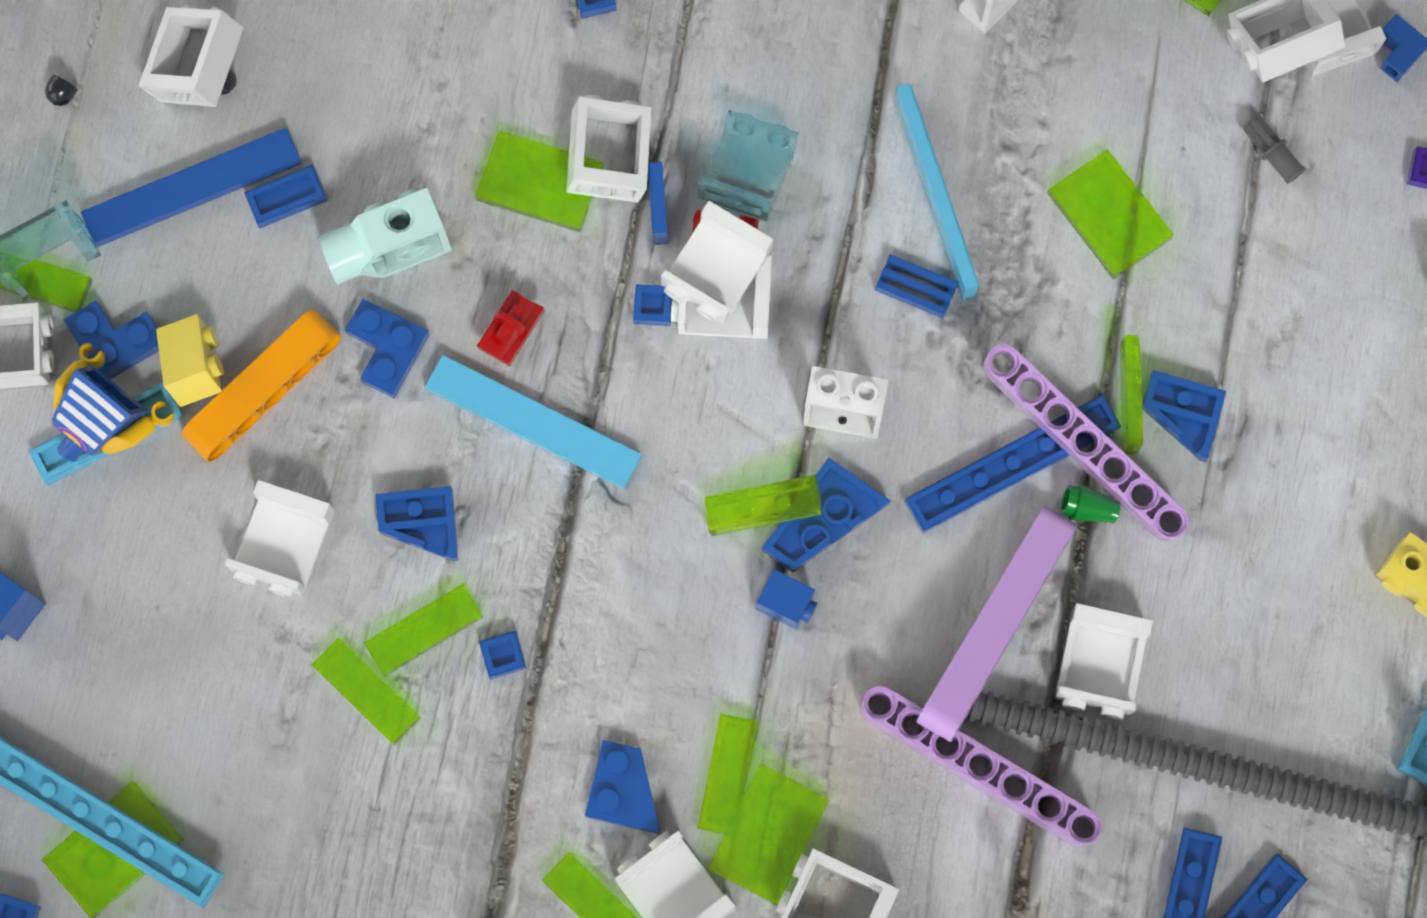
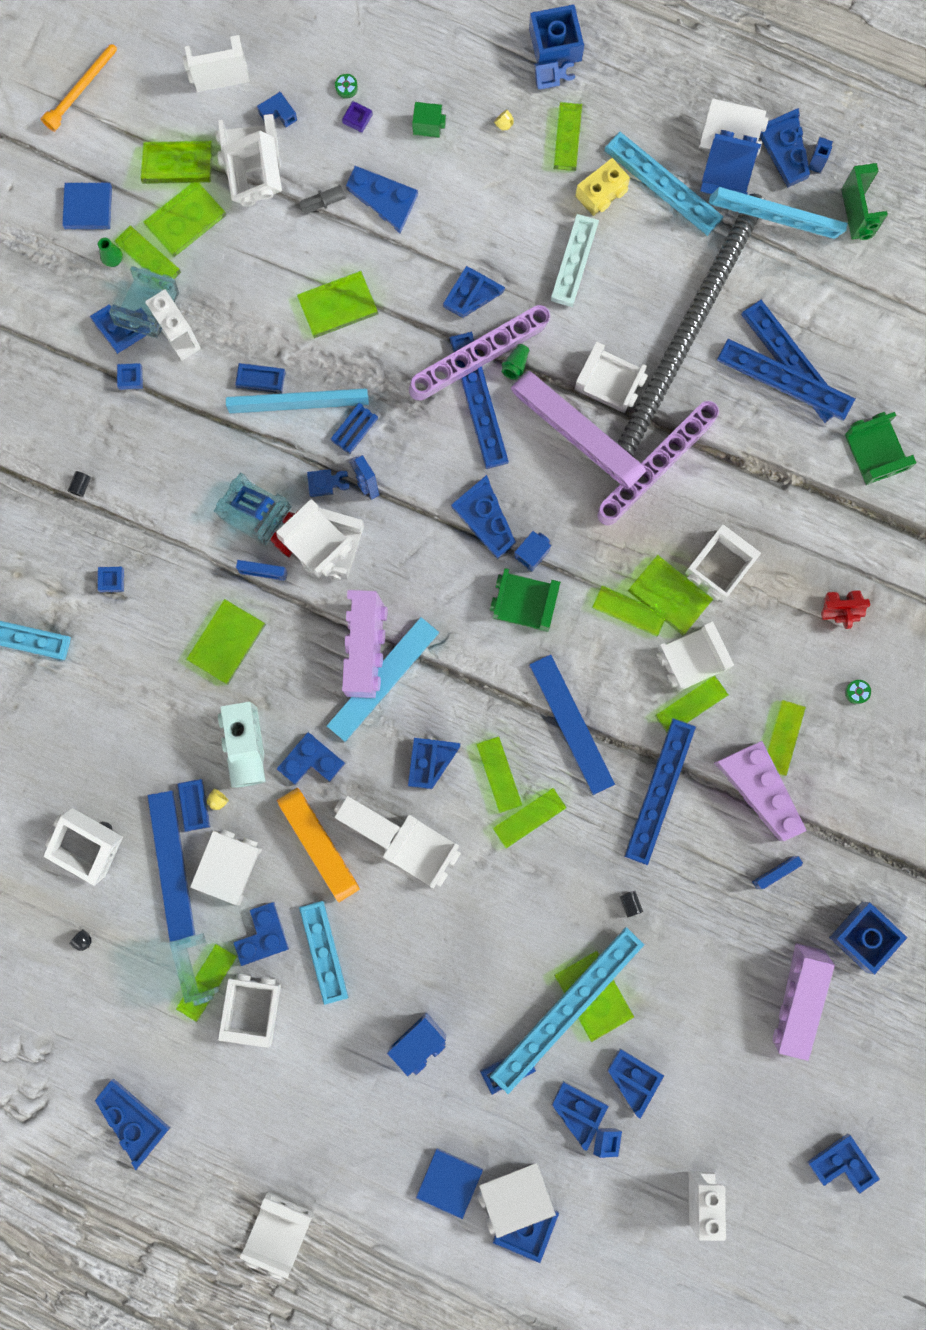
camera: 80 degrees left, 5 degrees up
(98, 412) = (313, 952): torso -> none
(189, 360) = (292, 886): light yellow brick -> none
(202, 261) = (226, 866): none -> white panel
(263, 876) = (631, 903): none -> black hinge
(300, 226) = (216, 800): none -> light yellow hinge
(305, 443) = (366, 821): none -> white brick
(448, 883) = (660, 791): none -> blue tile
(502, 655) = (526, 729): blue tile -> none
(510, 328) = (321, 678): red hips -> none
(525, 724) = (572, 724): none -> blue tile
(575, 375) = (364, 644): none -> lavender wedge
(602, 182) = (240, 602): white window -> none
(622, 789) = (624, 675): blue wing -> none
(652, 306) = (327, 588): blue plate -> none
(705, 606) = (525, 601): none -> green panel
(749, 171) = (259, 507): none -> blue tile
(763, 505) = (471, 550): clear neon green tile -> none
(819, 261) = (322, 482): none -> blue plate
(836, 310) = (365, 476): none -> blue wing
(845, 395) = (424, 476): white window -> none
(960, 129) = (260, 378): none -> blue tile
(1131, 394) = (454, 320): clear neon green tile -> none
(1286, 560) = (574, 260): none -> light aqua plate
(1309, 240) = (385, 196): none -> blue wing

